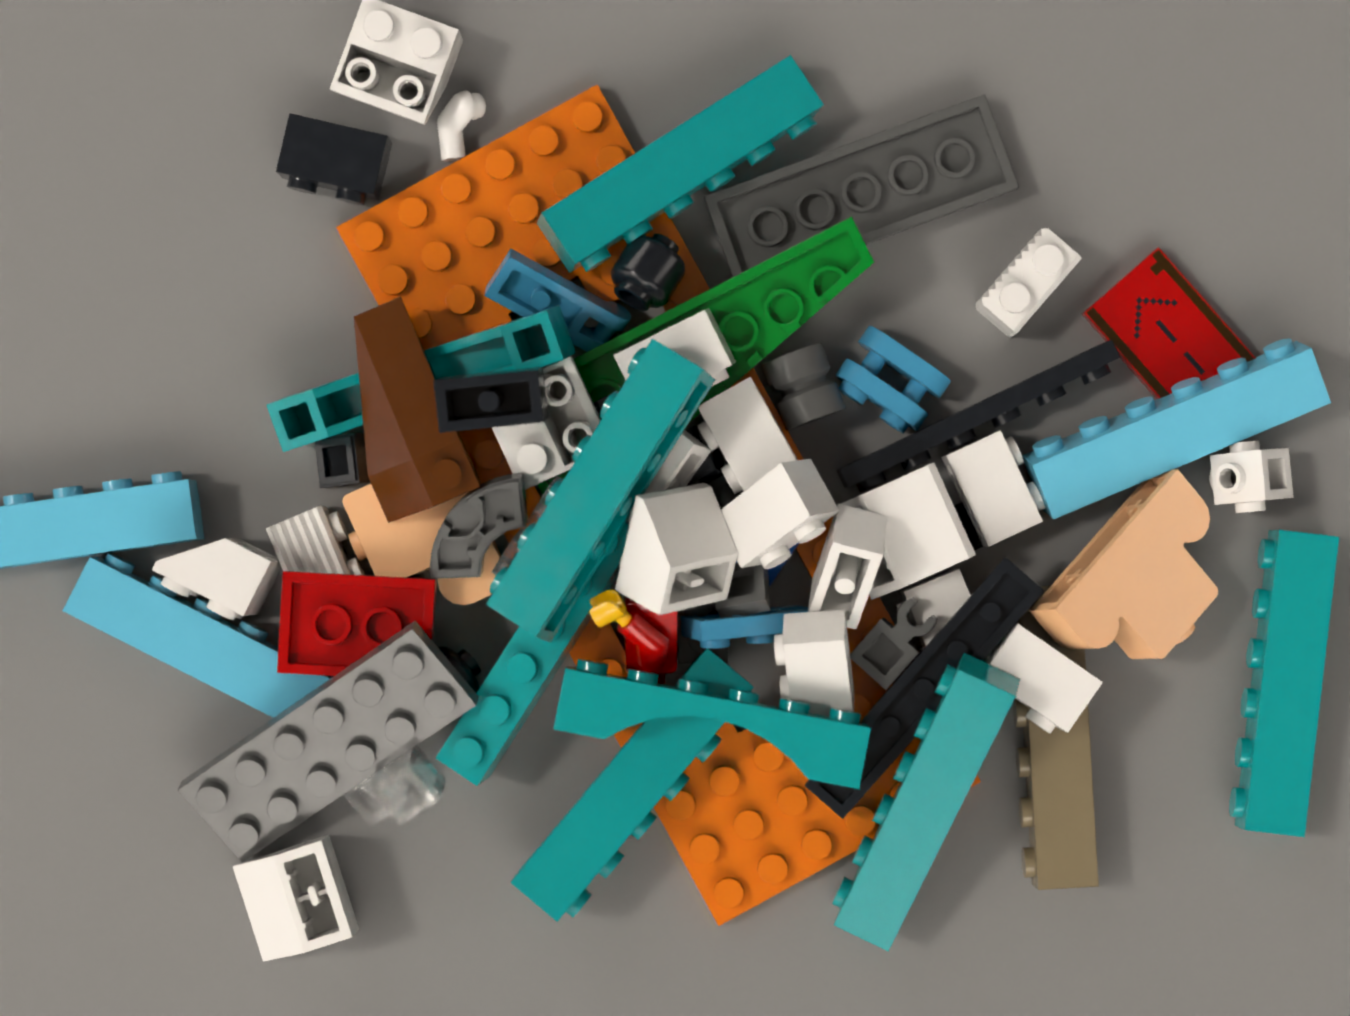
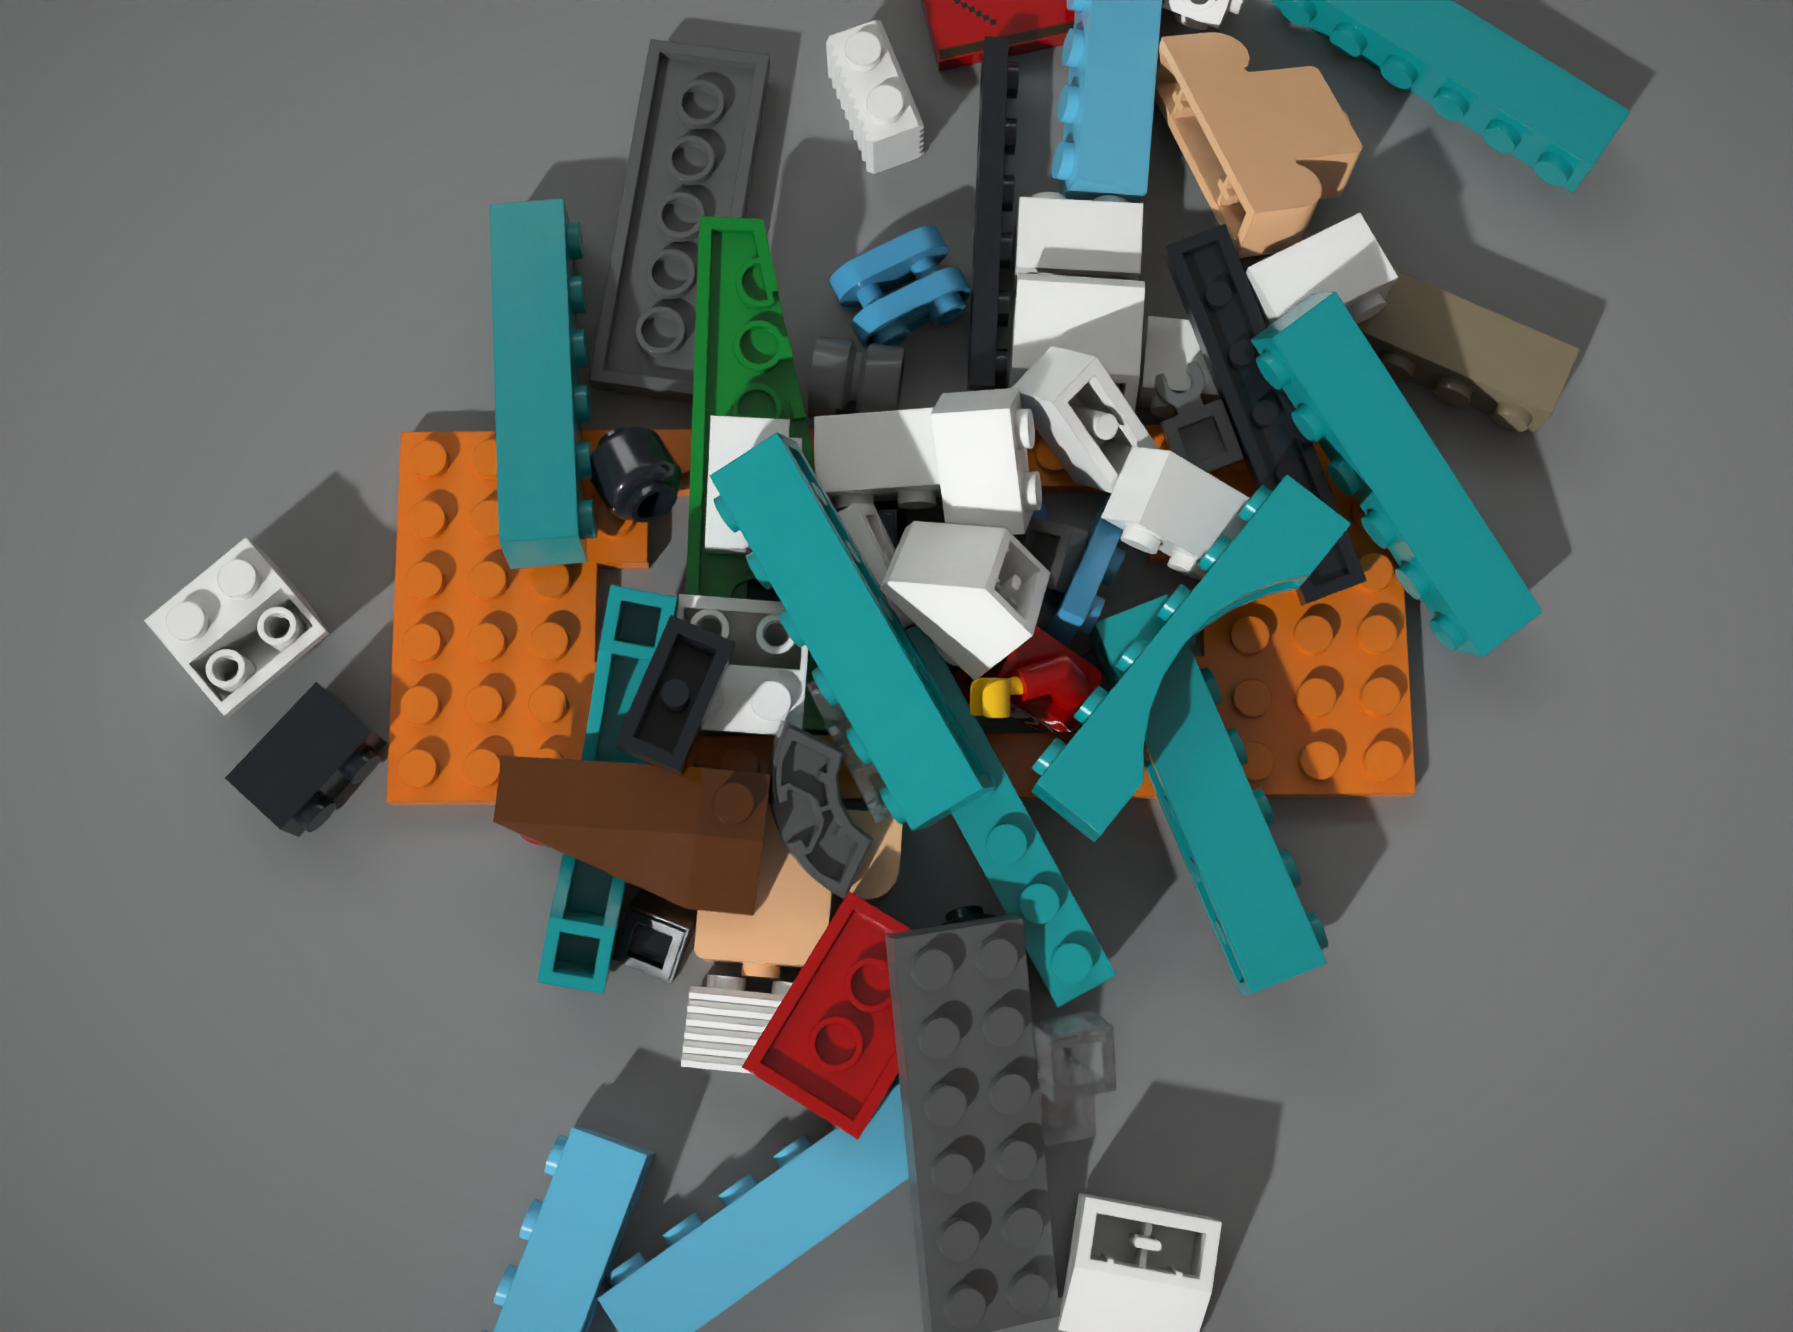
camera: 60 degrees left, 10 degrees down
(226, 572) = (701, 1140): white slope -> none
(454, 119) = (346, 609): white arm -> none
(531, 288) = (573, 614): dark azure plate -> none

